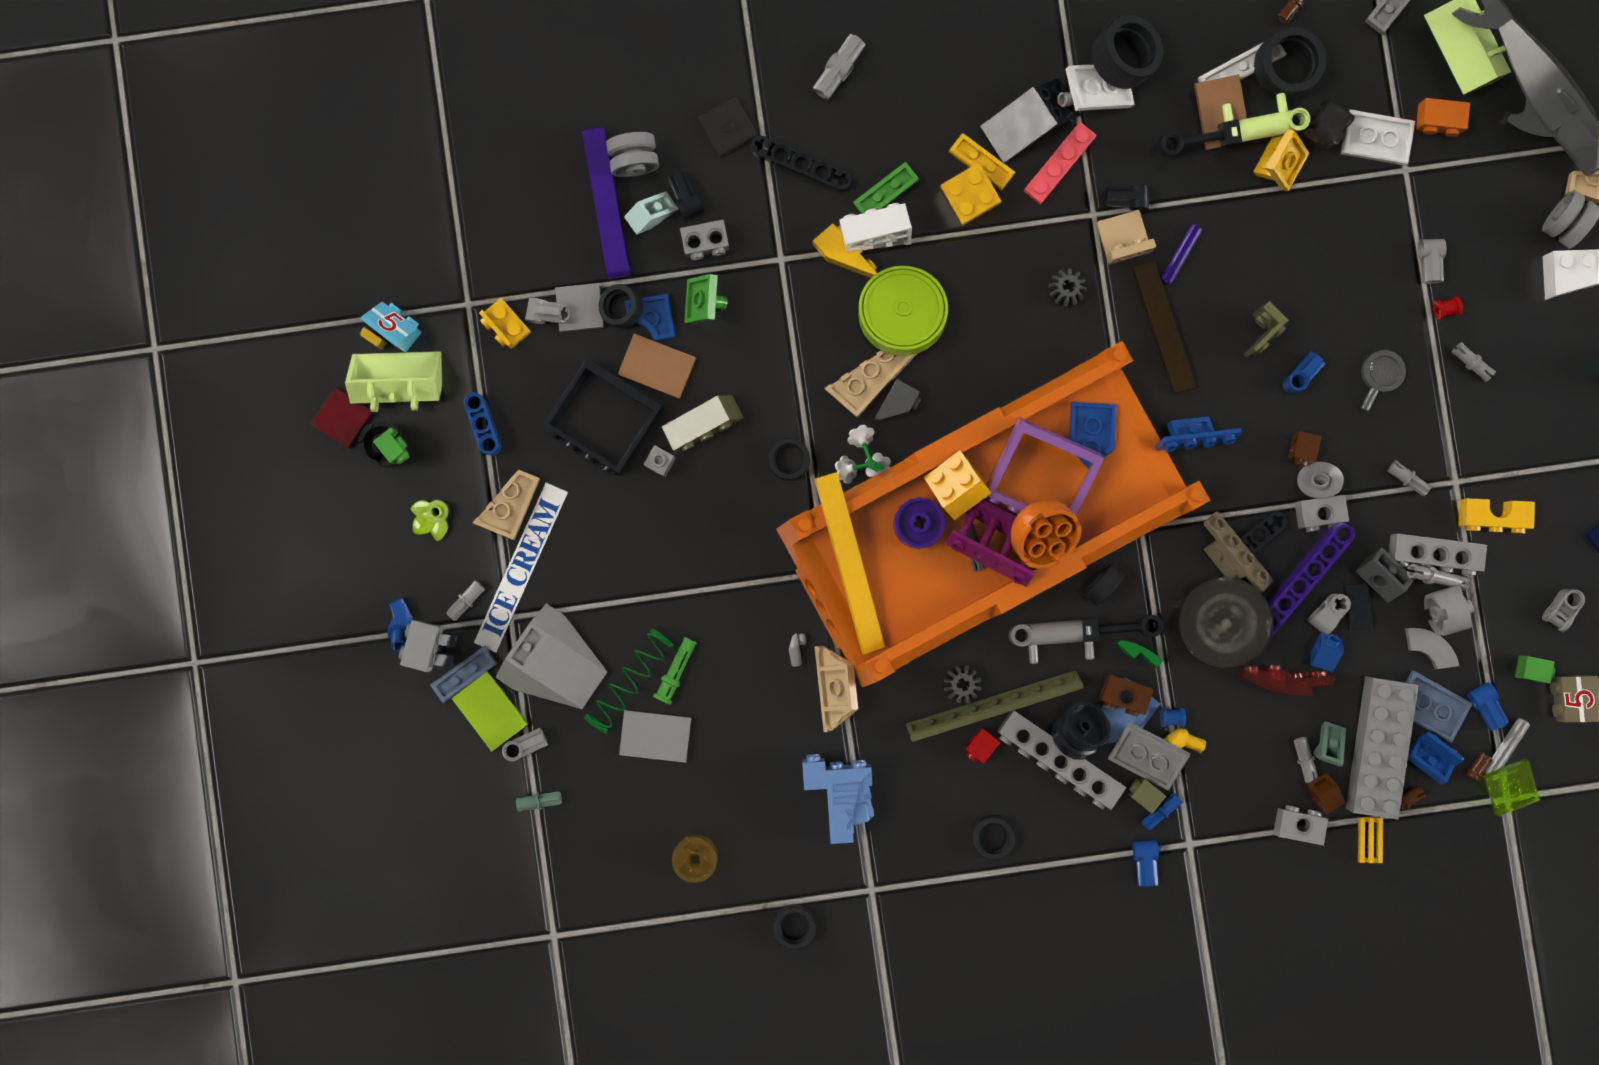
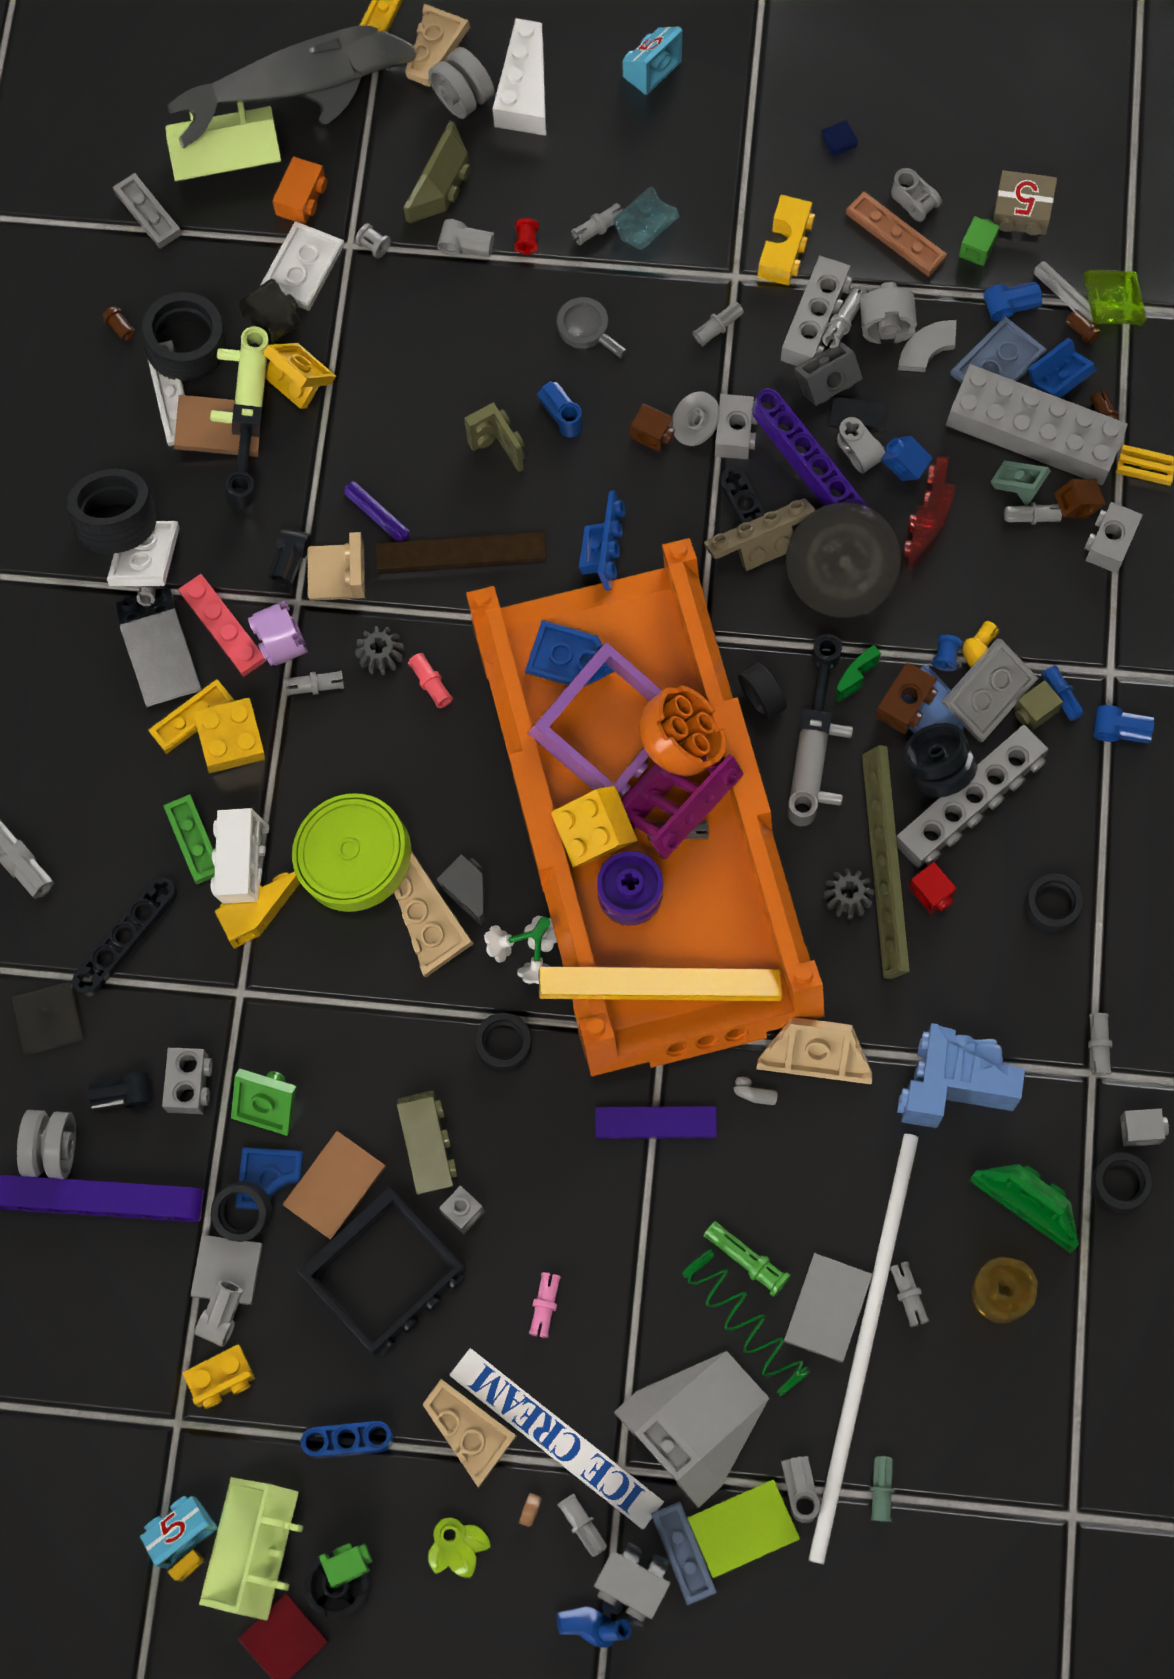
camera: 75 degrees left, 15 degrees down
(466, 562) = (530, 1510): none -> medium nougat tile
(608, 536) = (544, 1305): none -> bright pink pin
(635, 767) = (863, 1350): none -> white piece
(650, 212) = (129, 1143): light aqua slope -> none
(678, 791) = (909, 1294): none -> light grey pin
(757, 583) = (655, 1122): none -> dark purple tile
(765, 865) = (1031, 1200): none -> green wedge
(838, 935) = (1143, 1127): none -> light grey brick
(893, 892) = (1100, 1044): none -> light grey pin
(1029, 245) = (314, 683): none -> light grey pin
(1053, 332) = (430, 680): none -> coral pin
(1060, 207) = (279, 634): none -> lavender brick
(1413, 187) = (372, 240): none -> light grey bush
(1482, 225) = (440, 177): none -> olive wedge
(1486, 398) = (644, 219): none -> clear light blue bracket
(1525, 601) = (896, 234): none -> nougat tile

